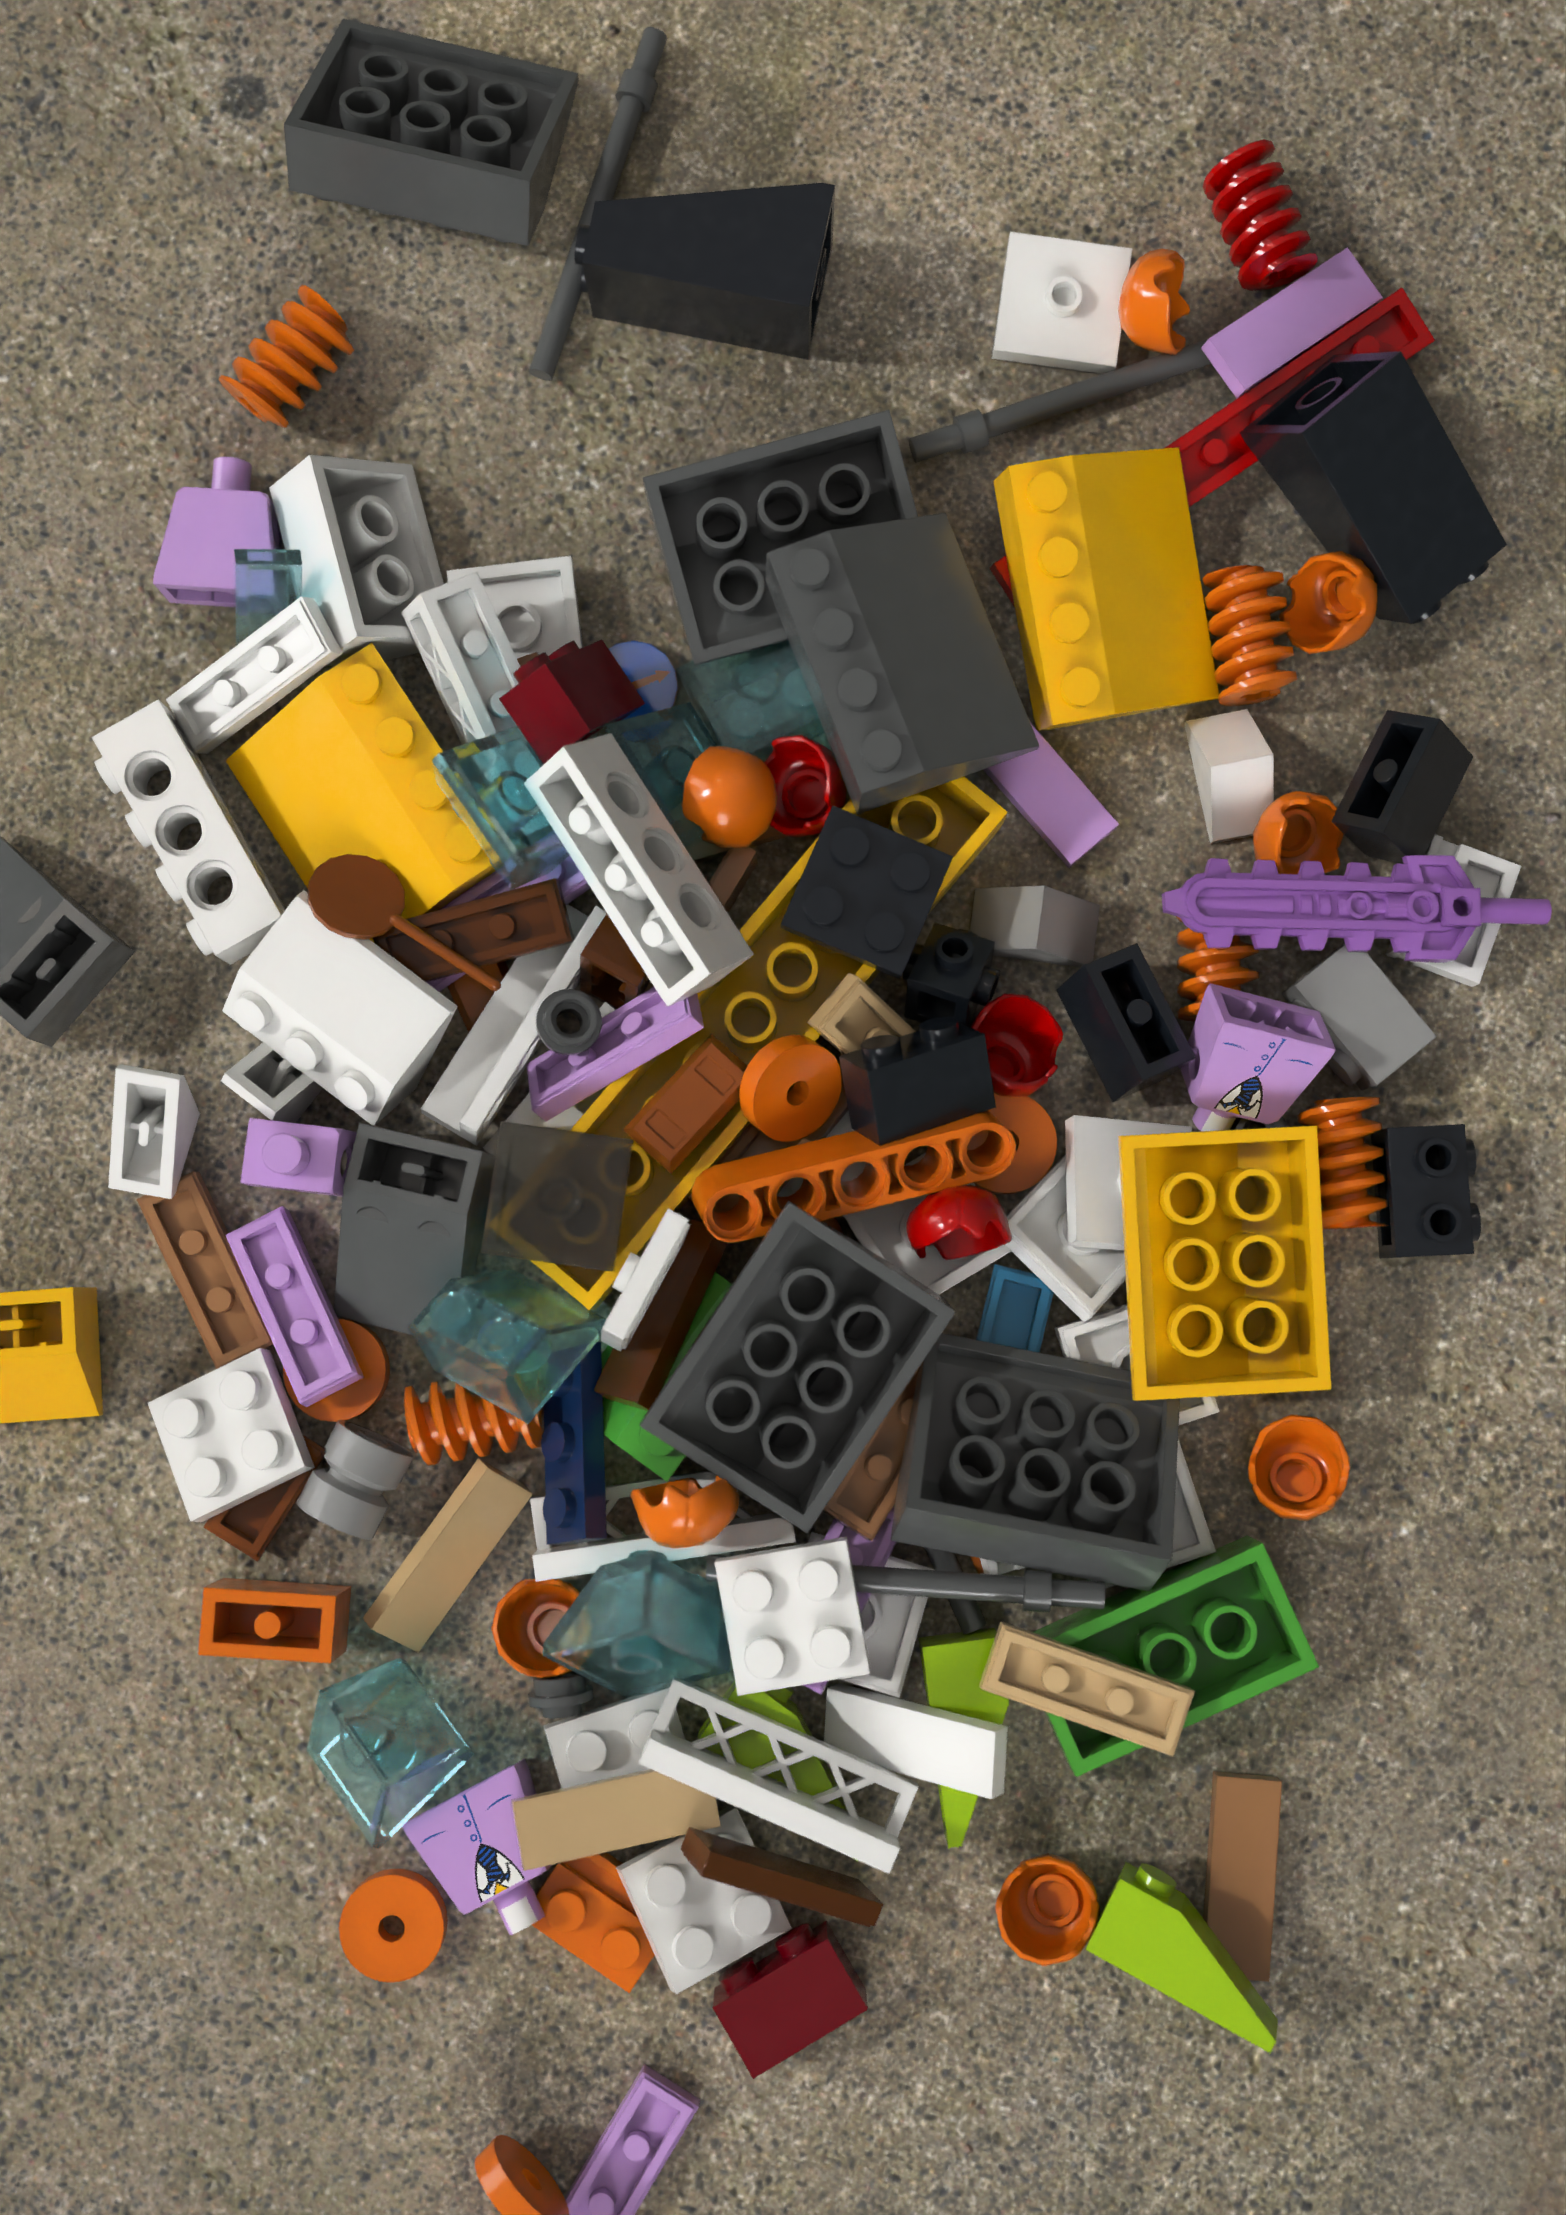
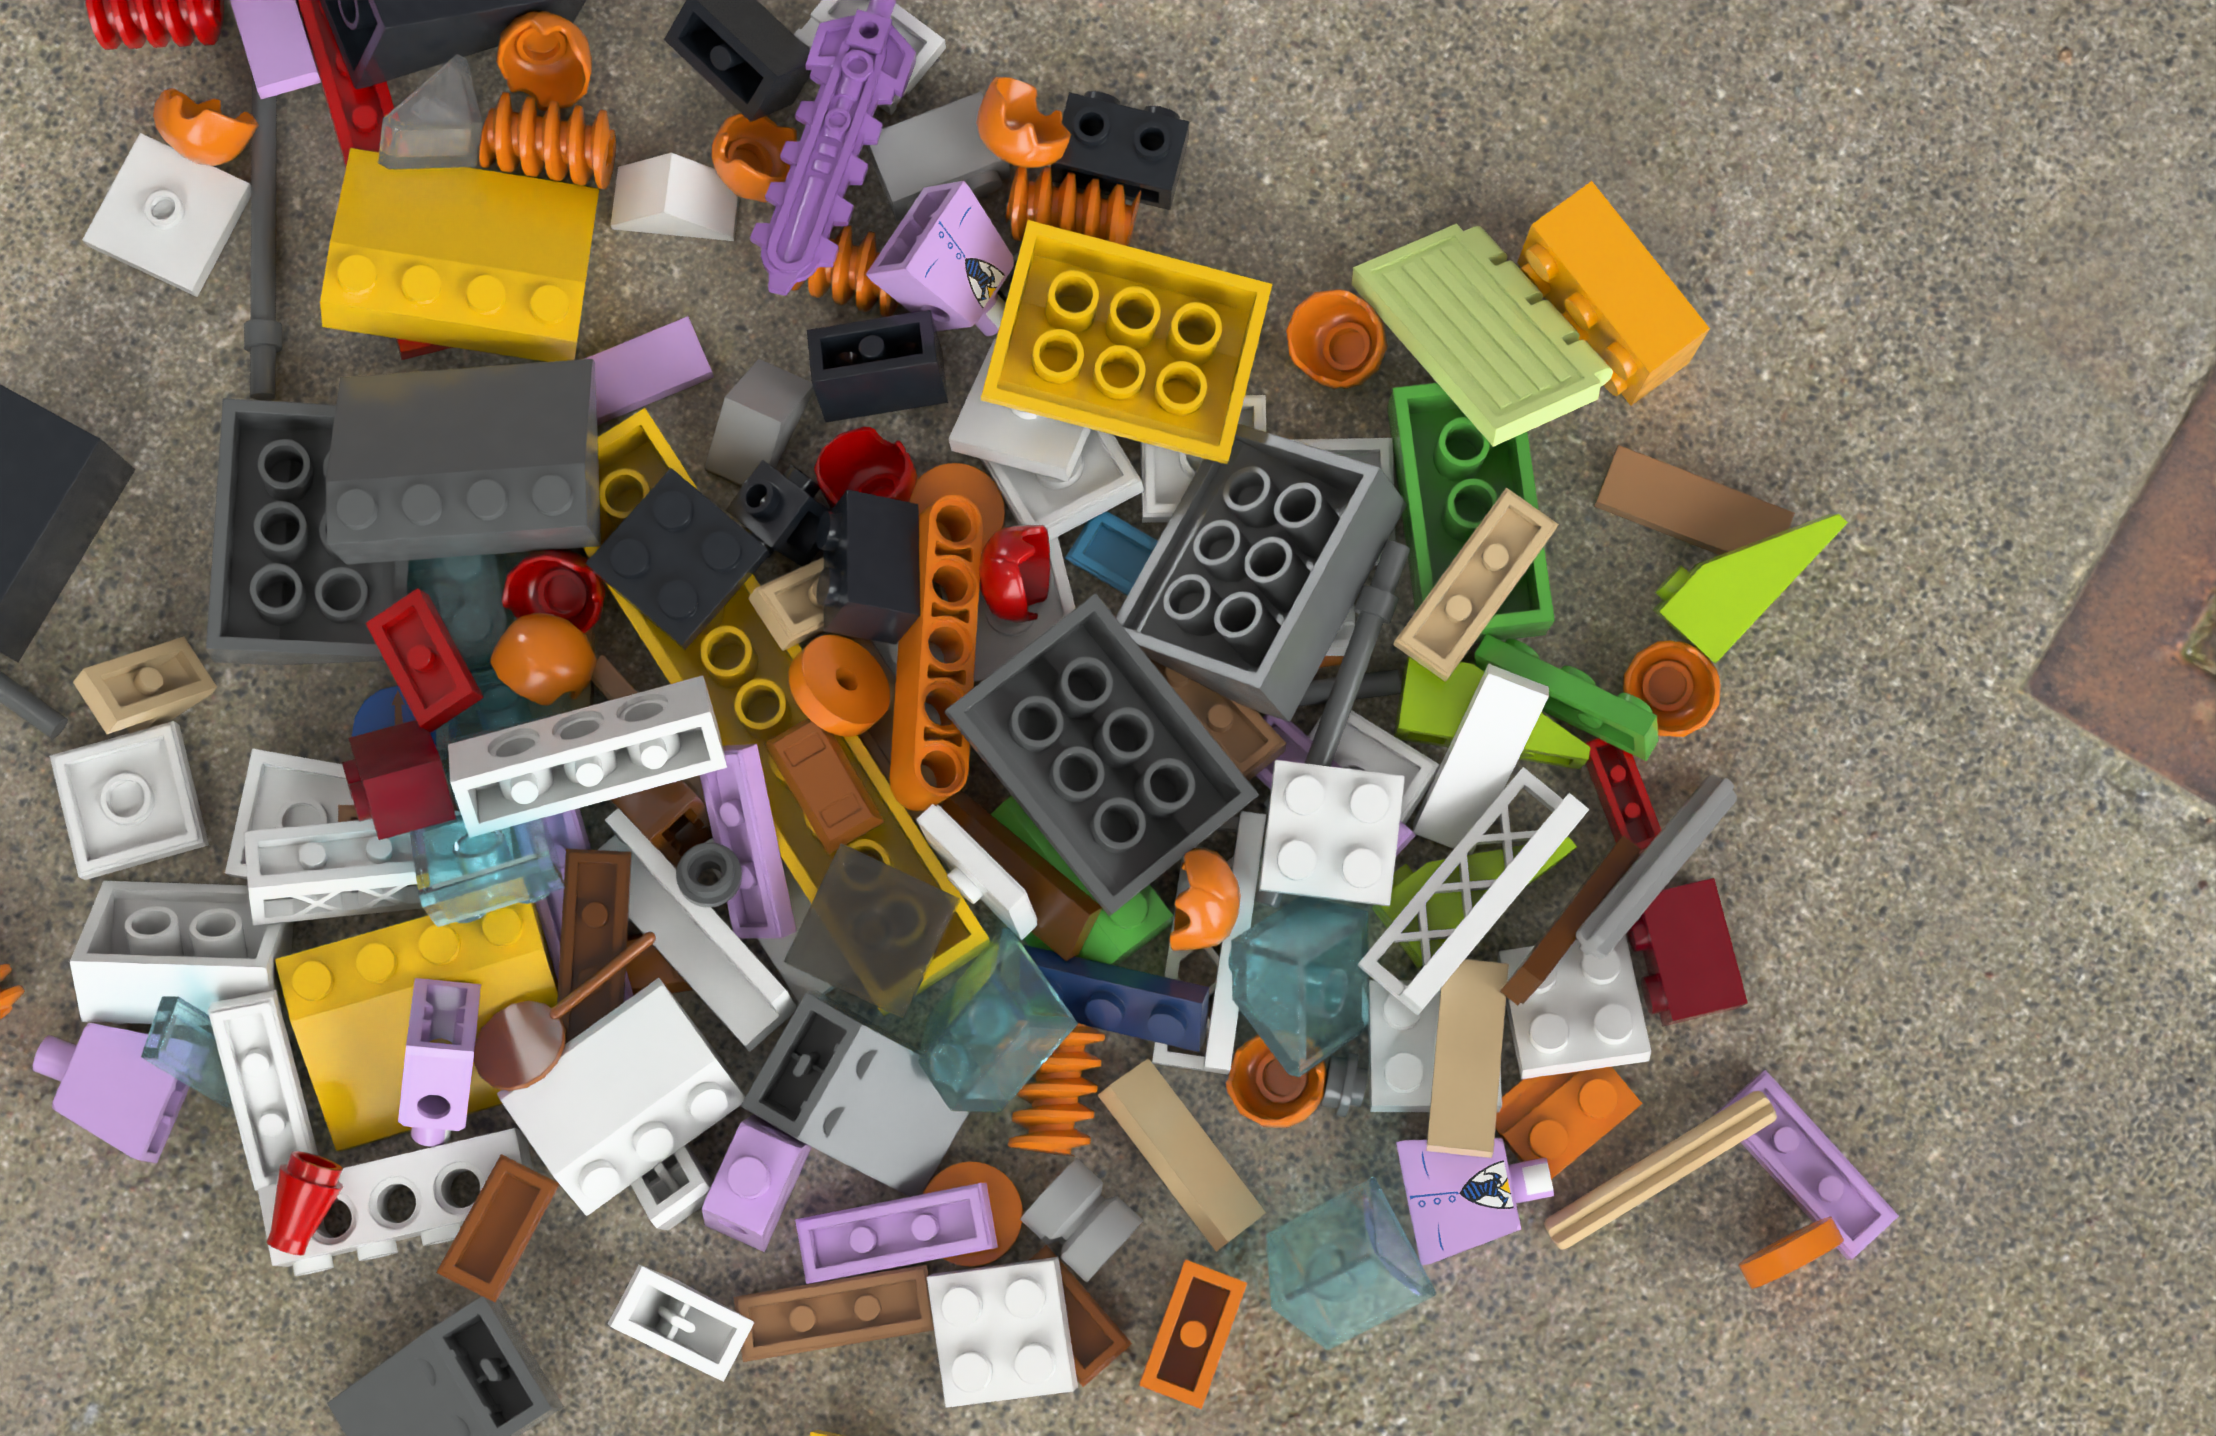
camera: 75 degrees left, 5 degrees down
(154, 743) = (302, 1200): none -> red cone
(178, 933) = (498, 1228): none -> dark orange tile
(293, 830) = (438, 1073): none -> lavender torso
(387, 1955) = (1547, 1309): orange piece -> none
(490, 460) = (129, 800): none -> white plate
(569, 2031) = (1660, 1169): none -> tan axle
(597, 436) = (145, 686): none -> tan slope
(692, 684) = (424, 660): none -> red plate
(860, 1947) = (1656, 867): none -> light grey axle
(930, 1887) = (1622, 794): none -> red piece
(996, 1869) = (1576, 698): none -> bright green plate
(1229, 518) = (435, 123): none -> clear slope
(1351, 1616) = (1482, 331): none -> yellowish green hinge
(1408, 1084) = (1016, 128): none -> orange hair
(1433, 1735) = (1612, 292): none -> light orange brick

